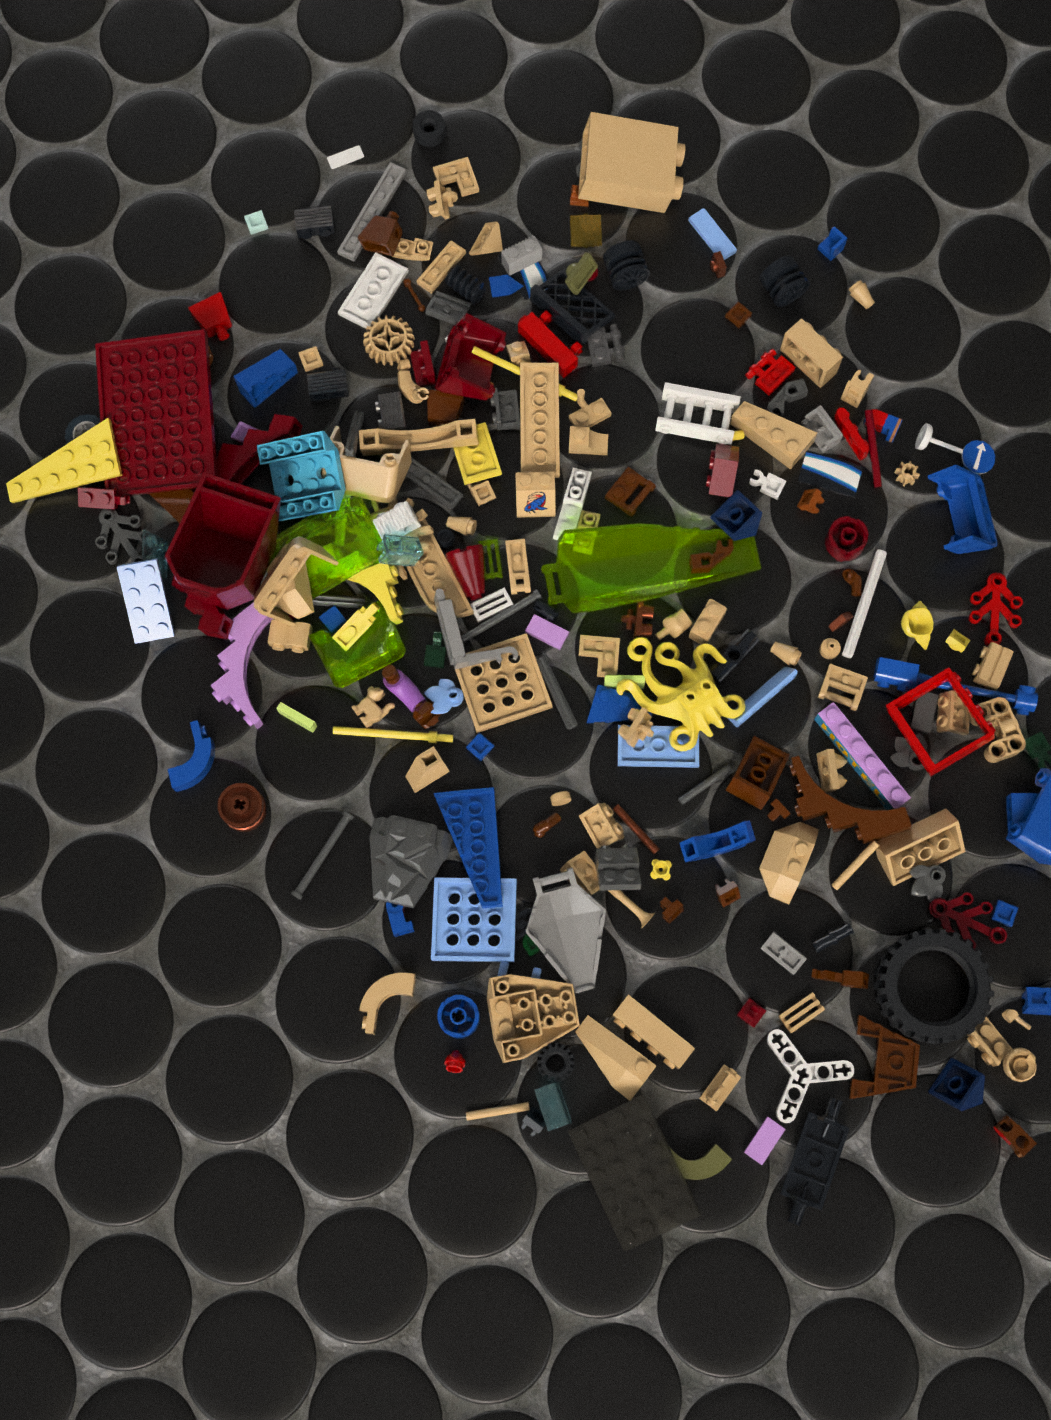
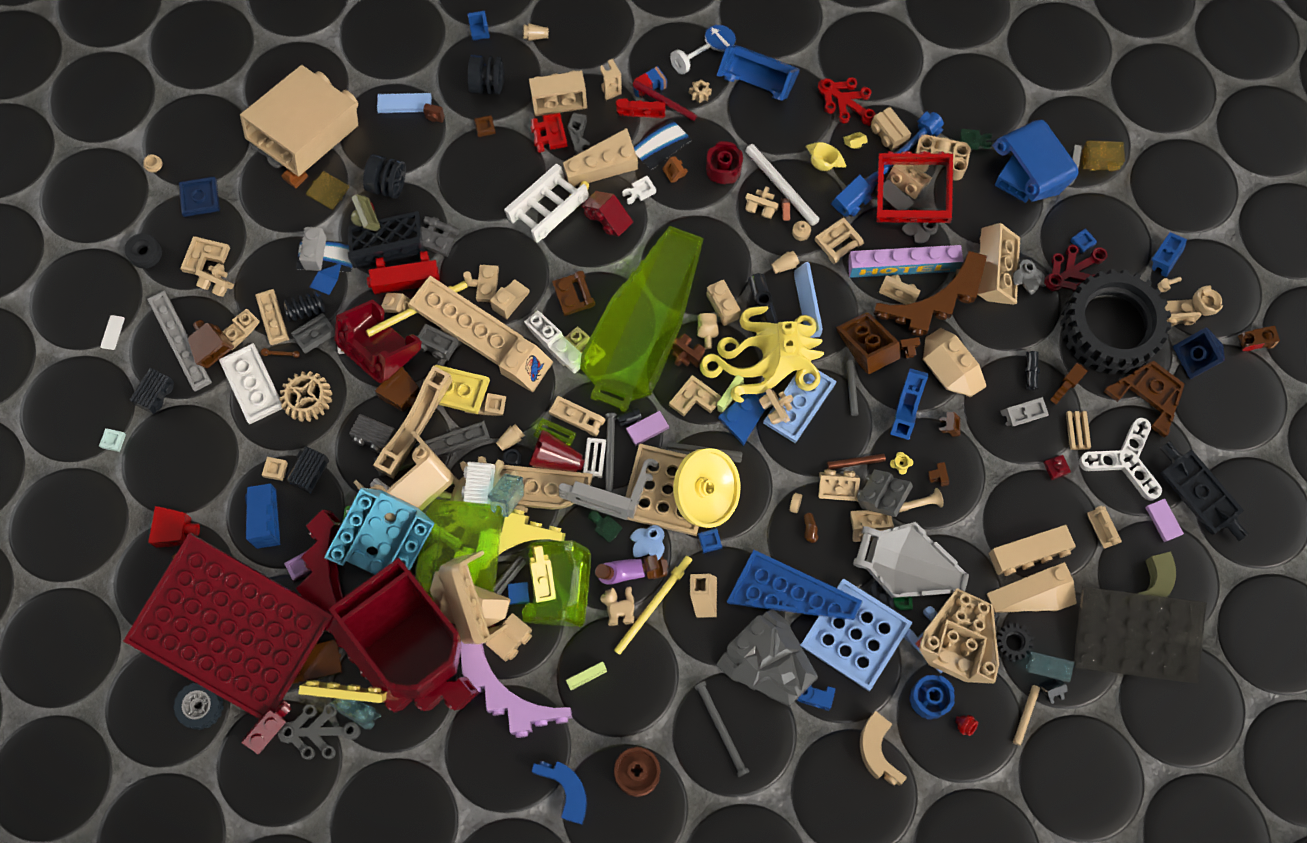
camera: 60 degrees left, 5 degrees down
(81, 462) = (219, 728): light yellow wing -> none
(145, 600) = (393, 743): plate -> none
(157, 524) = (335, 690): none -> light yellow wing
(353, 436) = (371, 471): dark grey axle -> none
(407, 387) = (361, 406): tan arm -> none
(423, 365) = (349, 382): dark red bracket -> none
(488, 240) = (277, 266): tan slope -> none
(508, 136) = (199, 196): none -> dark blue tile
(511, 79) = (152, 163): none -> tan plate
(519, 712) = (707, 487): none -> light yellow dish
(714, 559) = (667, 280): reddish brown piece -> none
(738, 517) = (653, 226): dark blue slope -> none
(827, 432) = (619, 121): light grey hinge -> none
(832, 605) = (769, 206): none -> tan hips
(854, 580) = (759, 179): reddish brown arm -> none
(855, 865) = (986, 318): tan bar -> none

